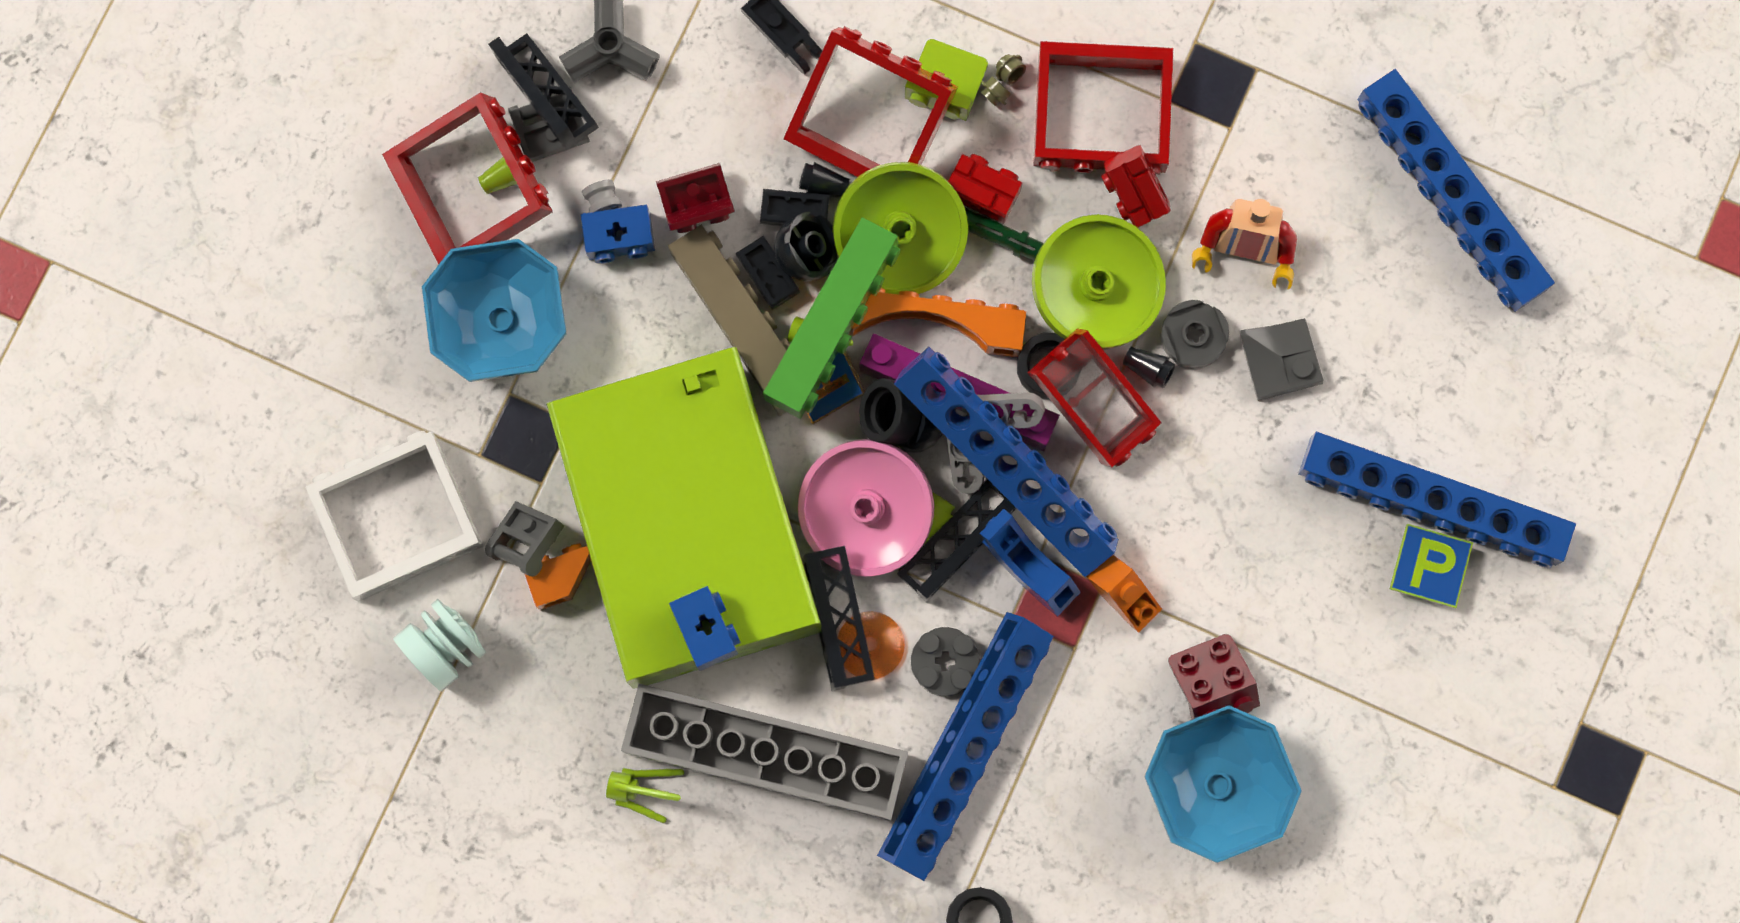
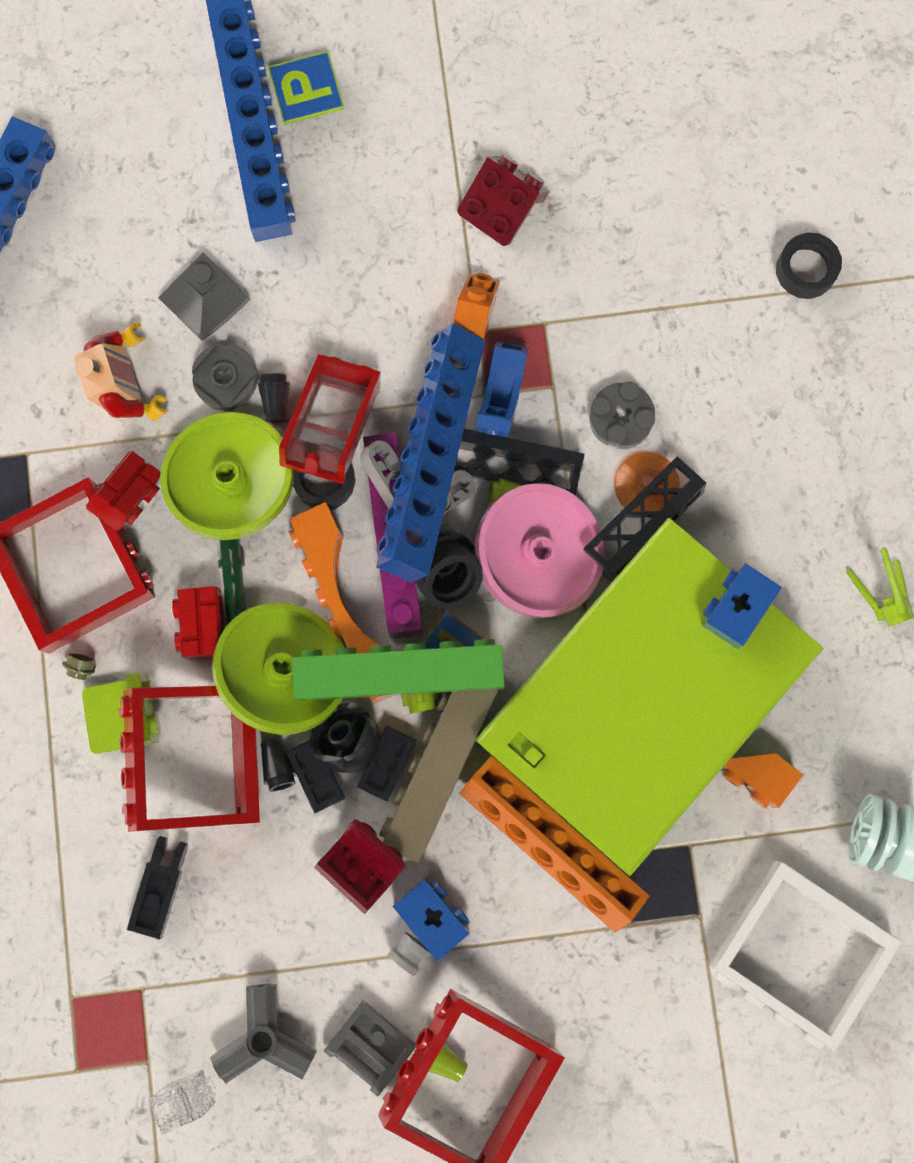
camera: 120 degrees left, 0 degrees up
(493, 310) = (576, 981): dark azure rock -> none
(529, 528) = (739, 824): dark grey plate -> none
(534, 92) = (350, 1082): black fence -> none
(612, 363) = (554, 845): none -> orange brick
(764, 752) = (794, 507): light grey brick -> none
(950, 752) = (682, 353): blue brick -> none
(995, 91) = (107, 666): olive plate -> none
(1222, 784) = (586, 132): dark azure rock -> none

